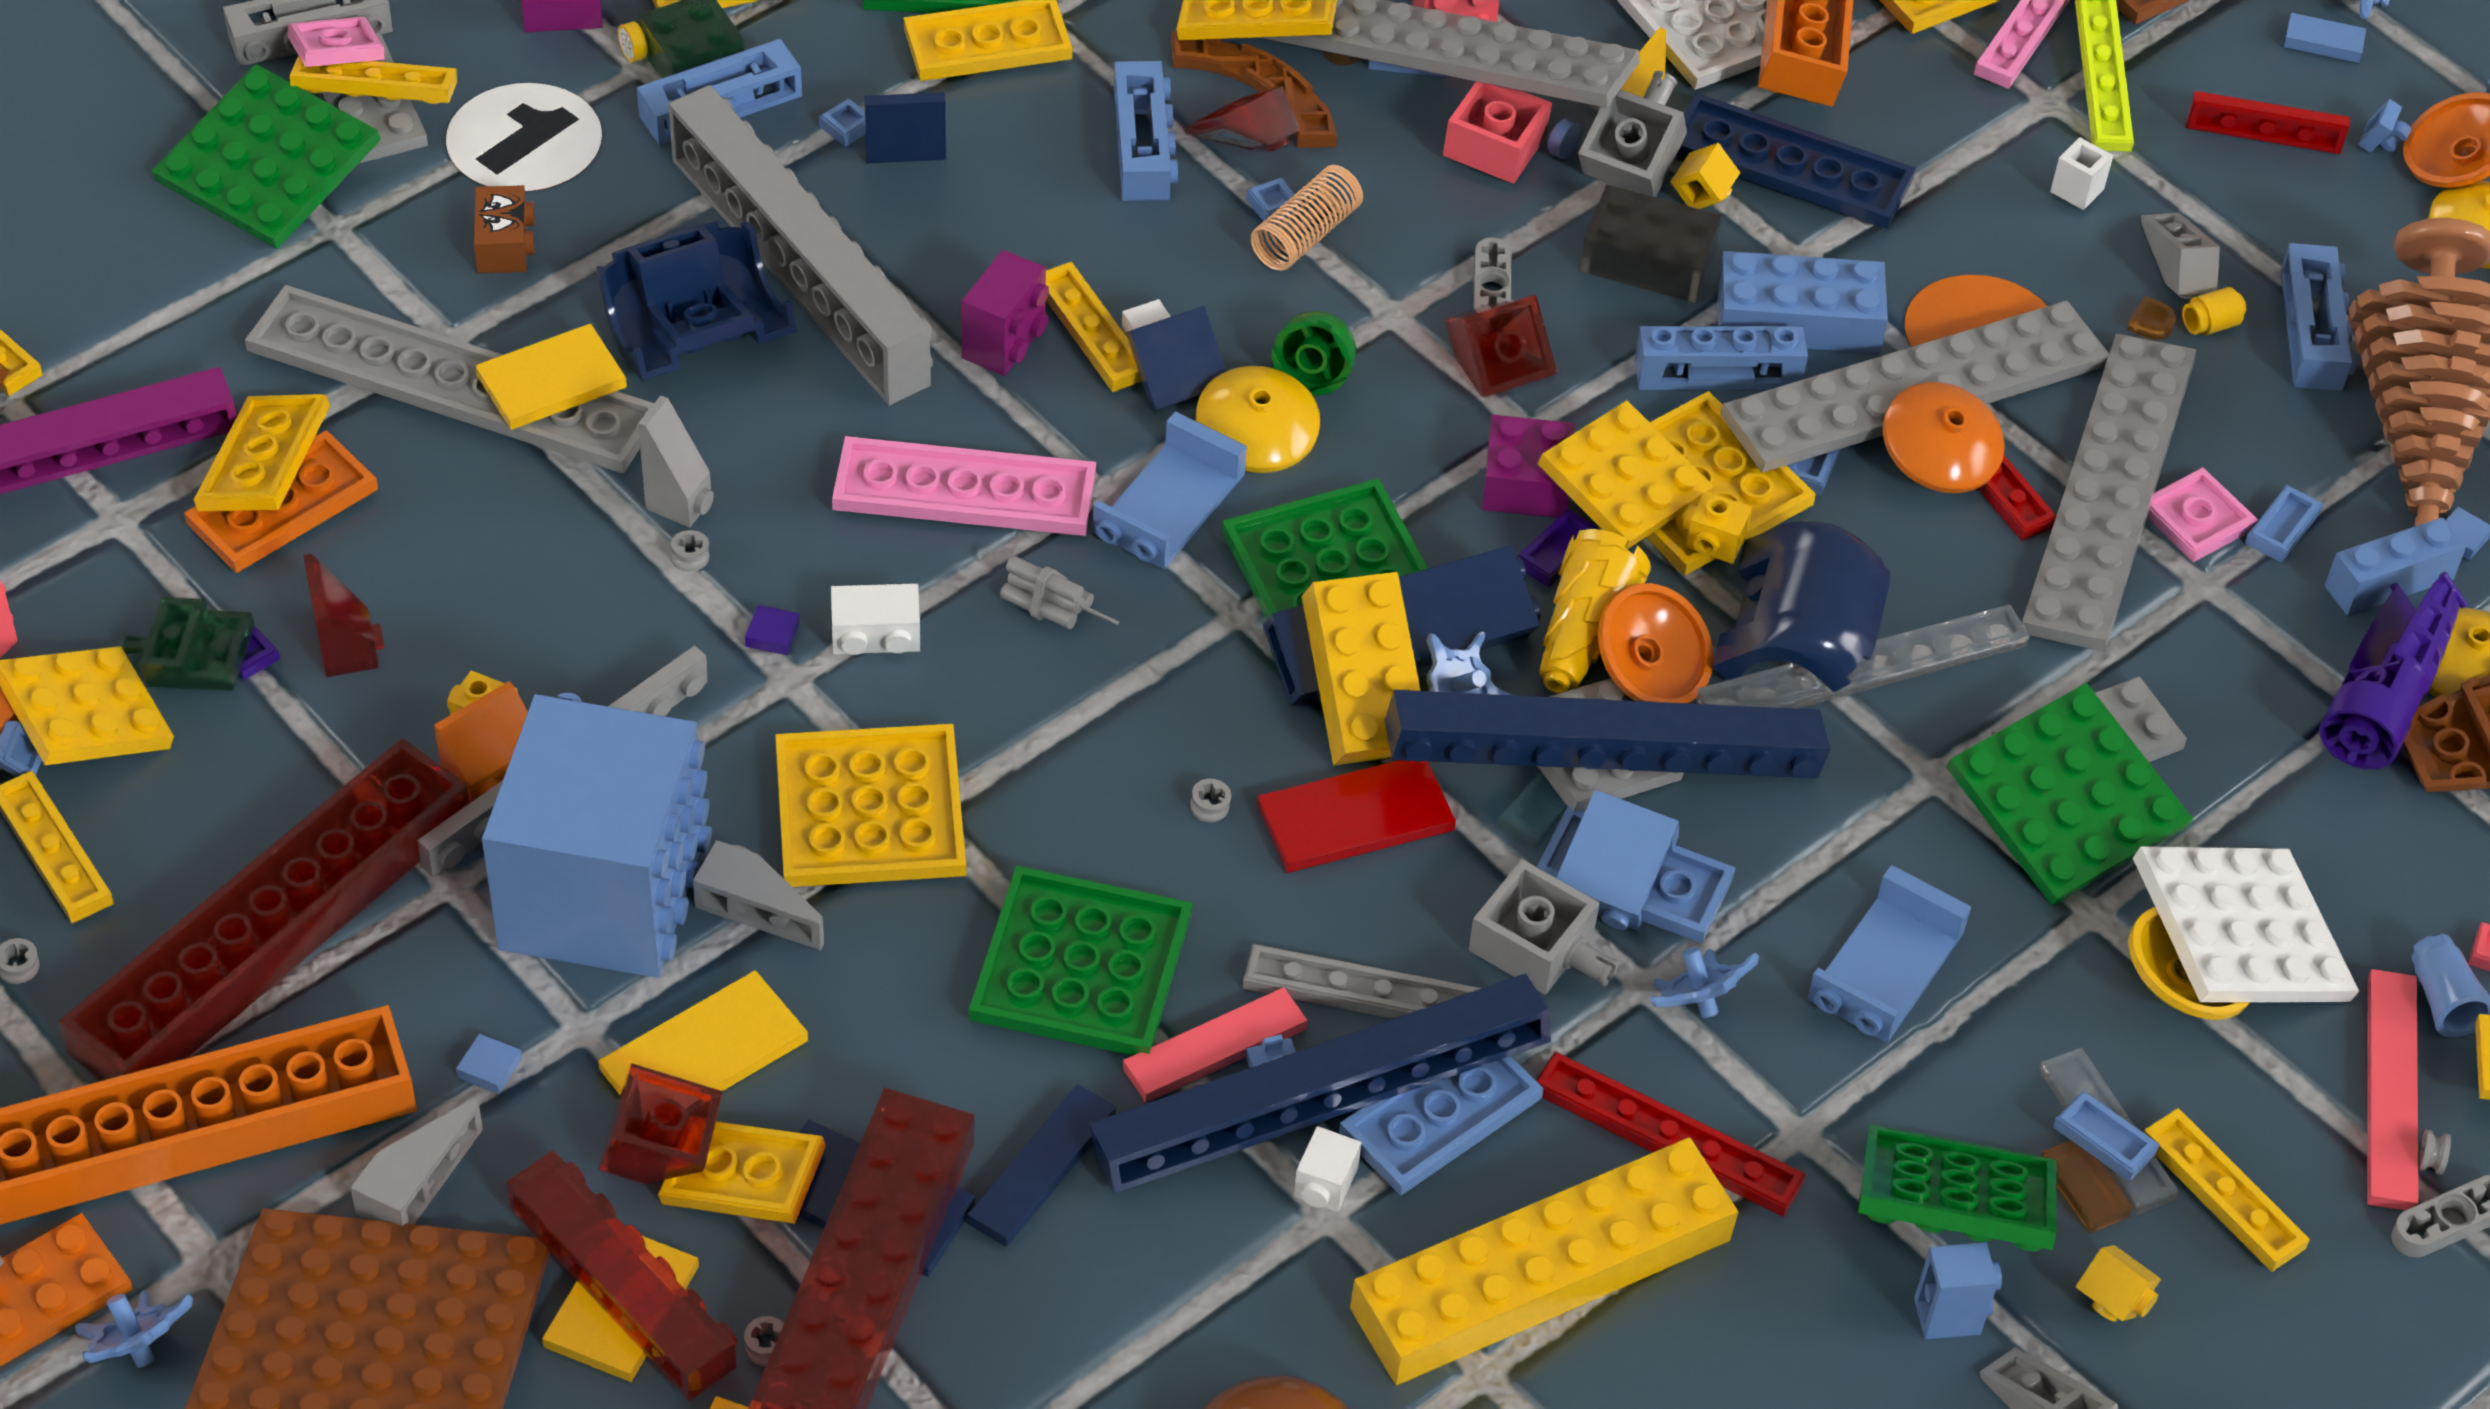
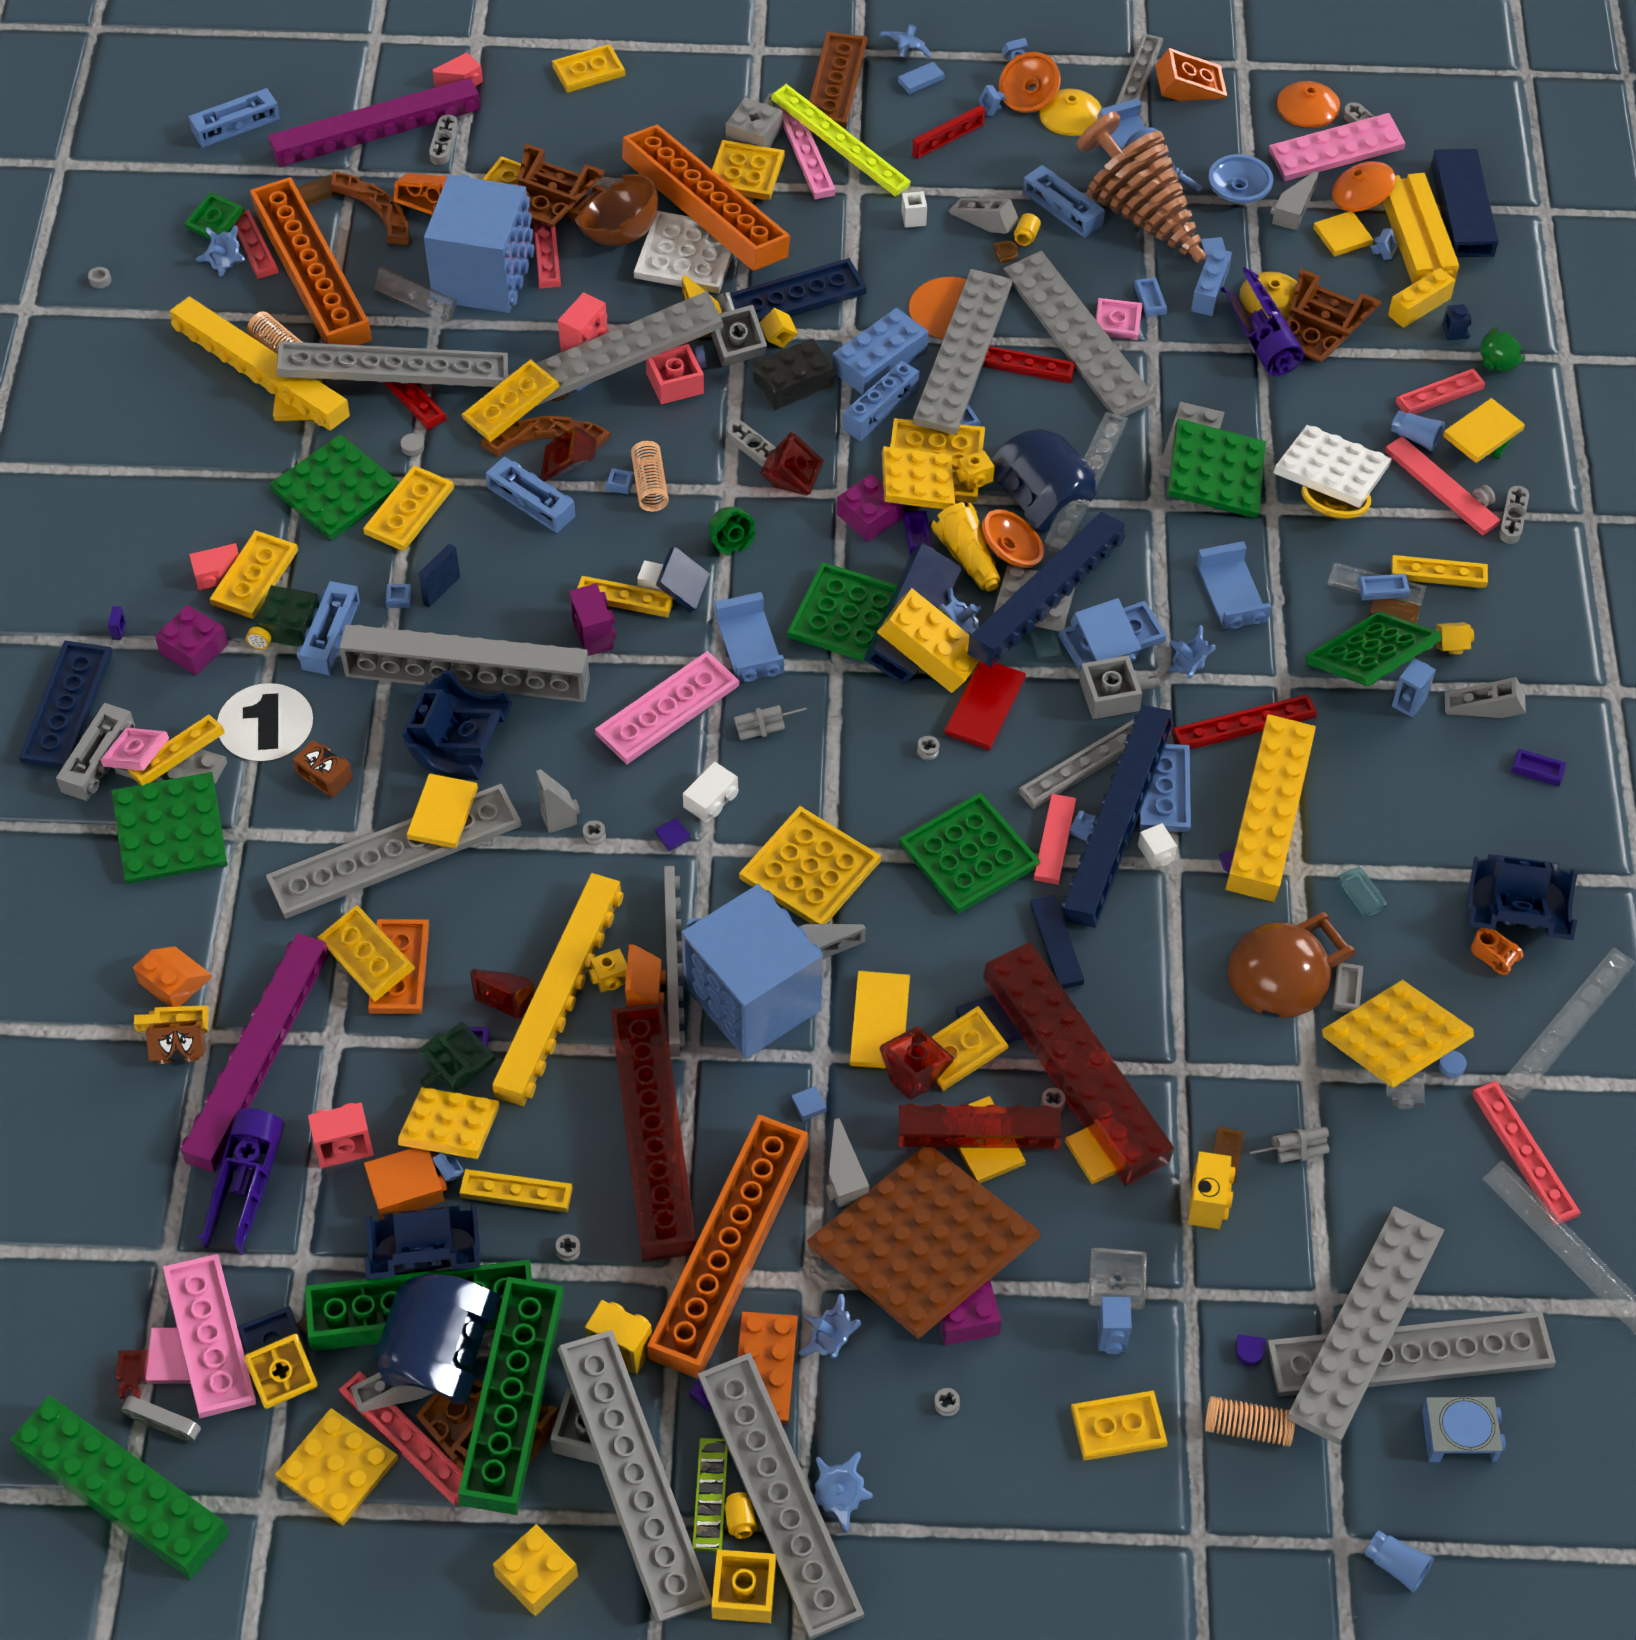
camera: 45 degrees left, 5 degrees up
(54, 302) = (170, 975): none -> orange slope
(400, 675) = (557, 990): none -> yellow brick
(1274, 432) = (727, 580): yellow dish -> none
(1933, 448) = (1003, 363): orange dish -> none

